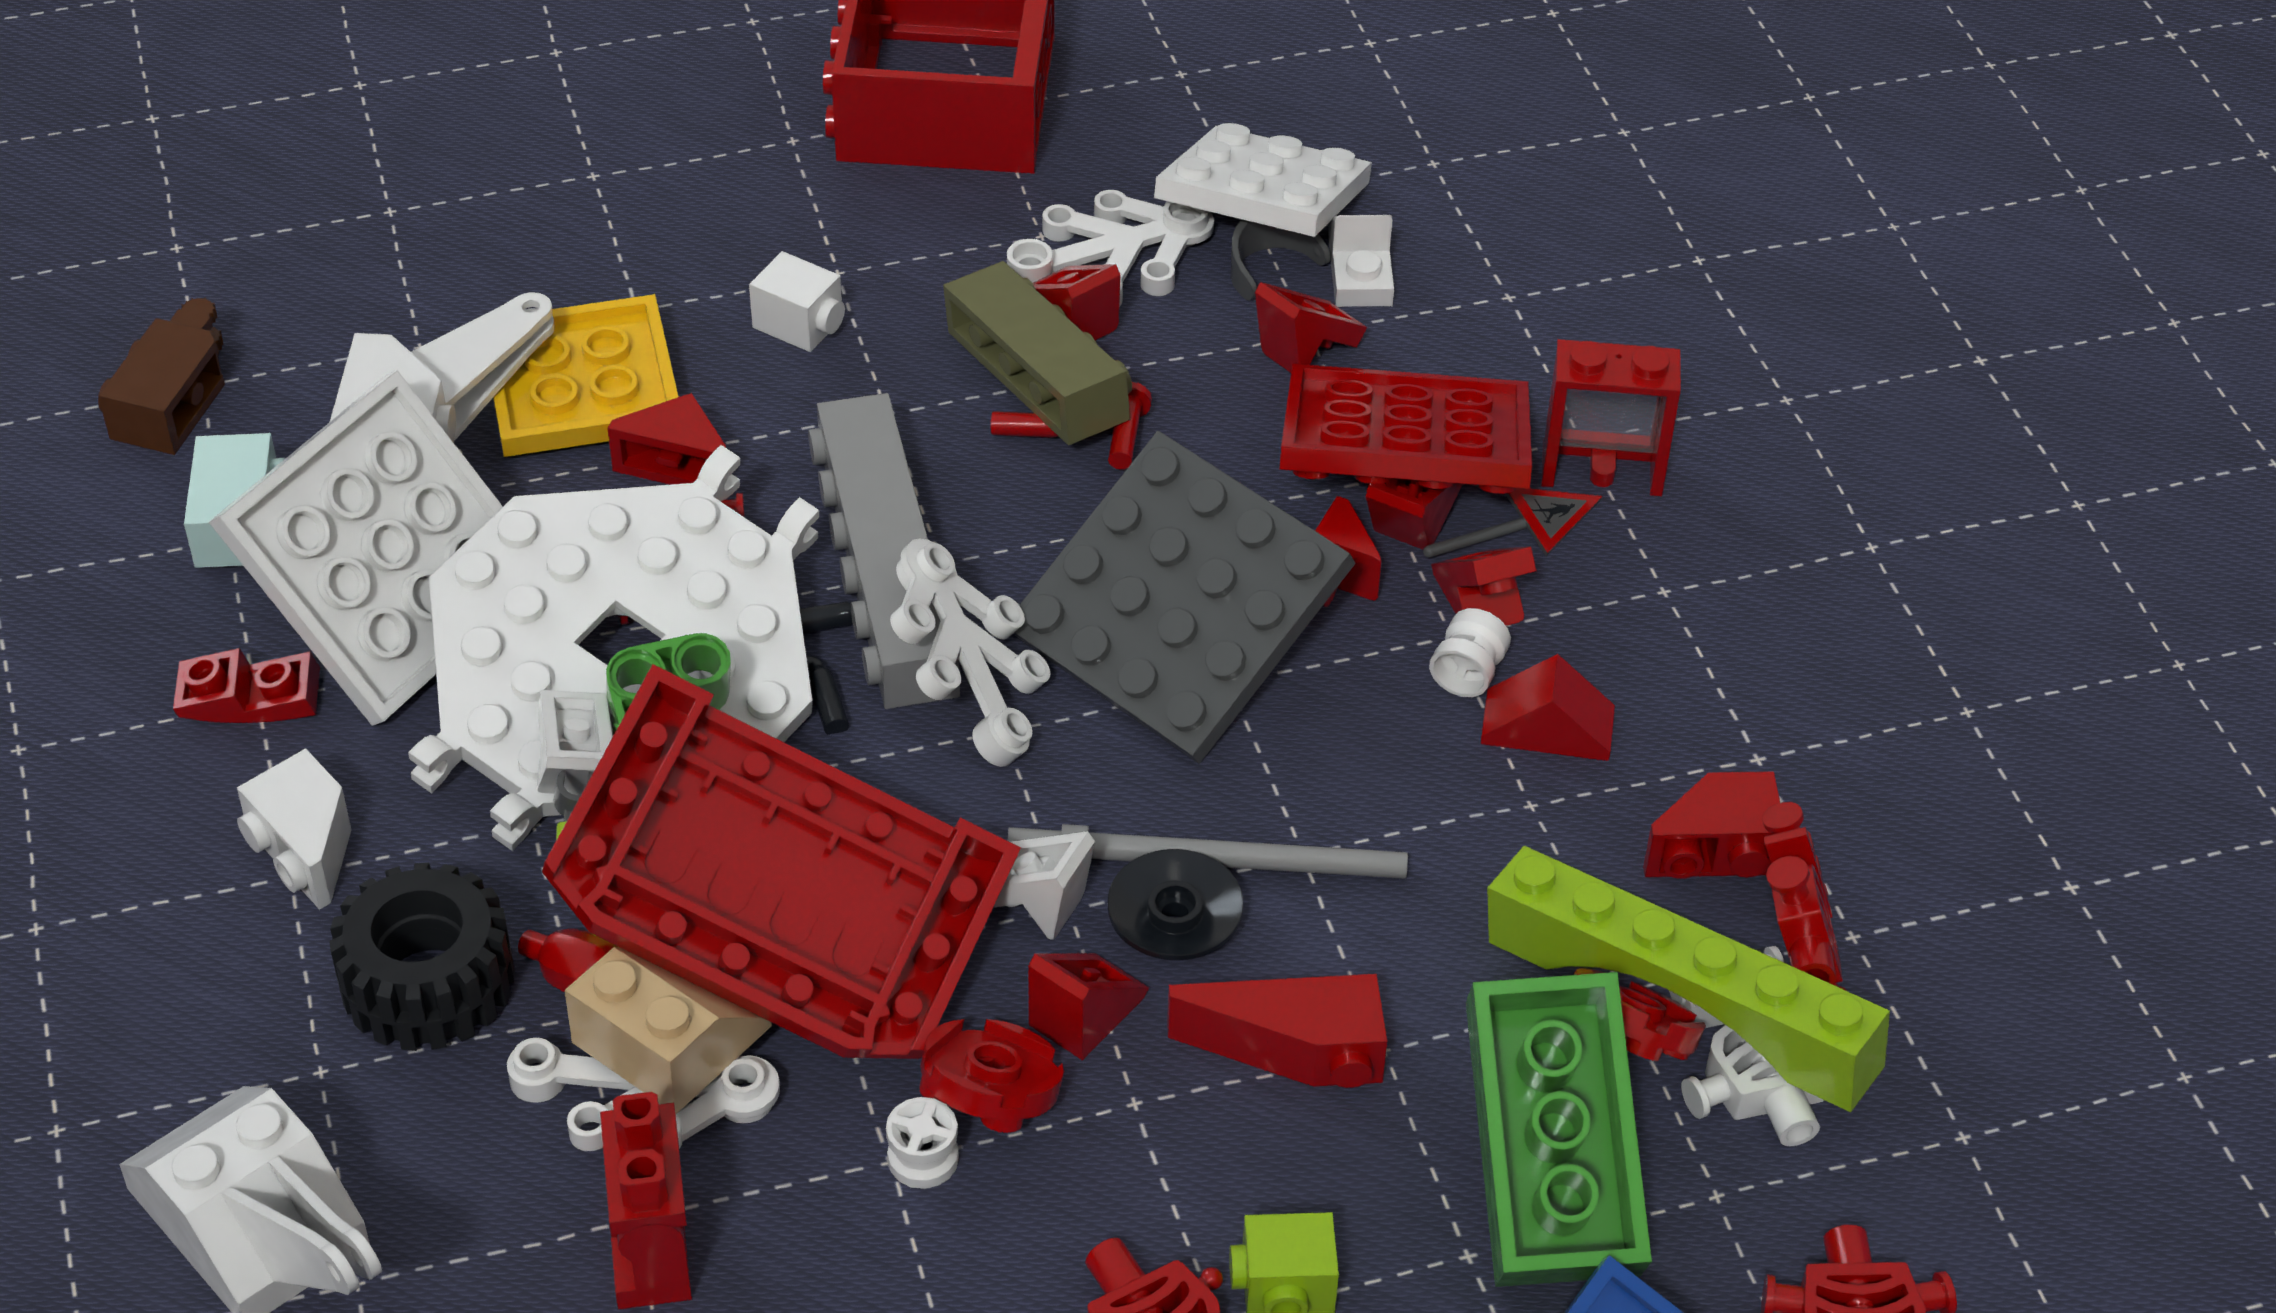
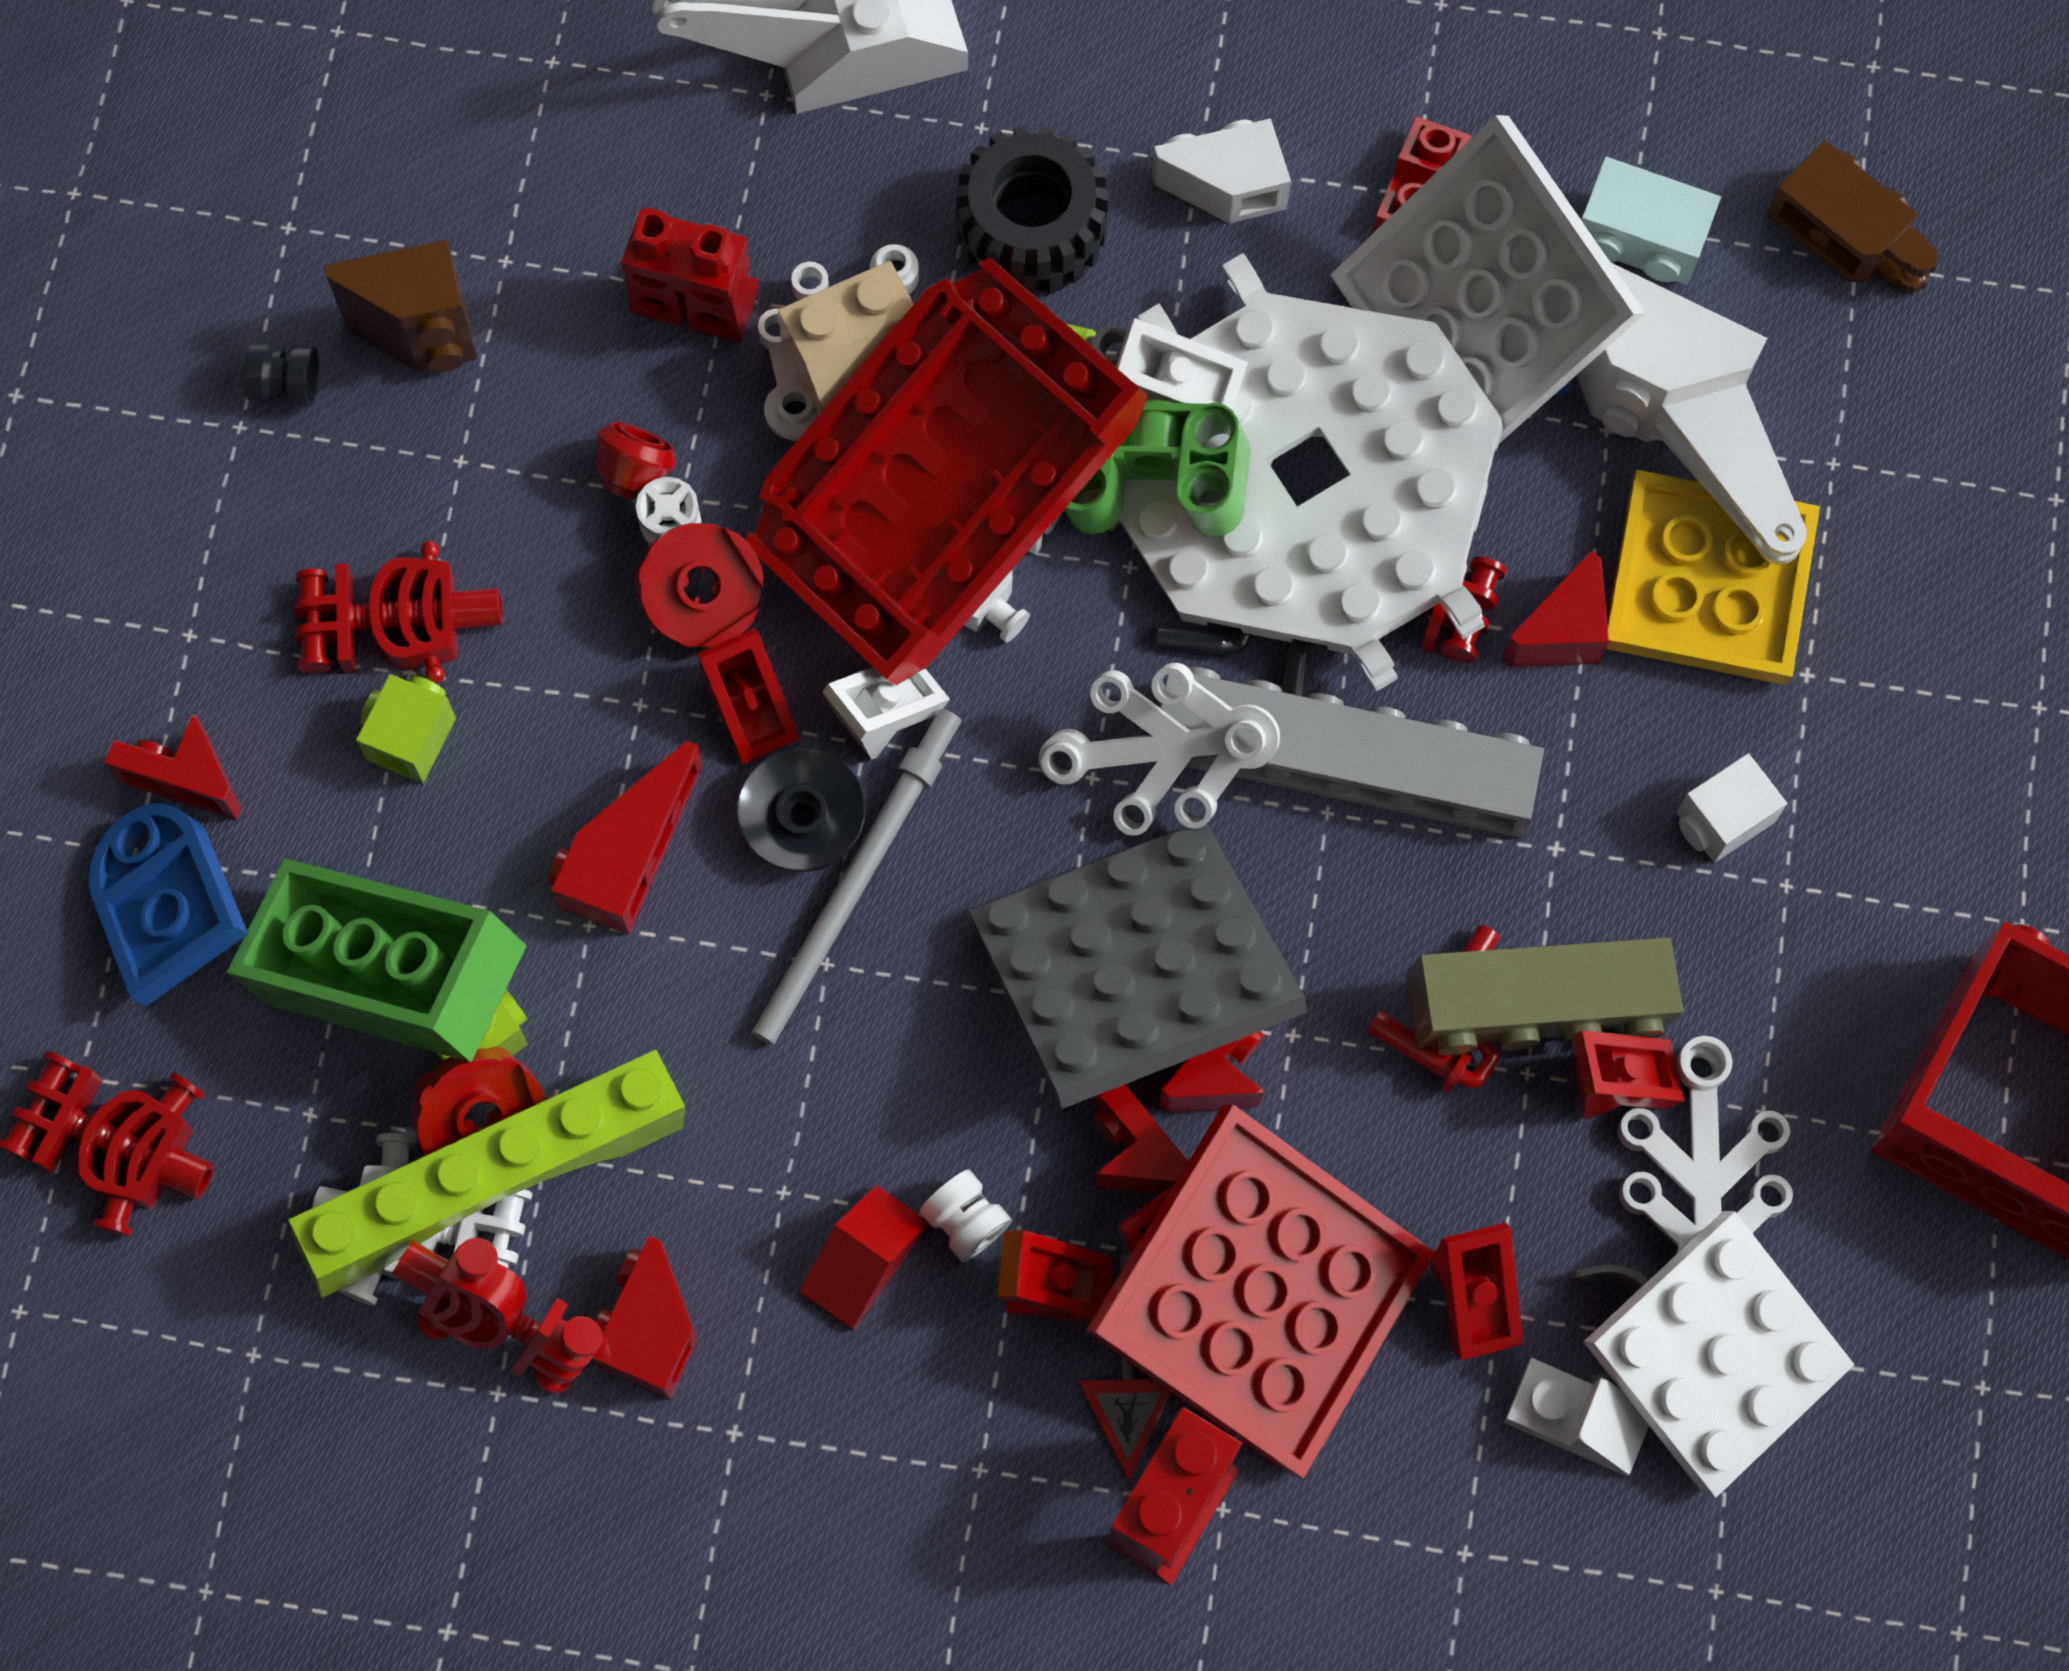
camera: 115 degrees right, 25 degrees up
(878, 1191) = (631, 458): none -> red cone

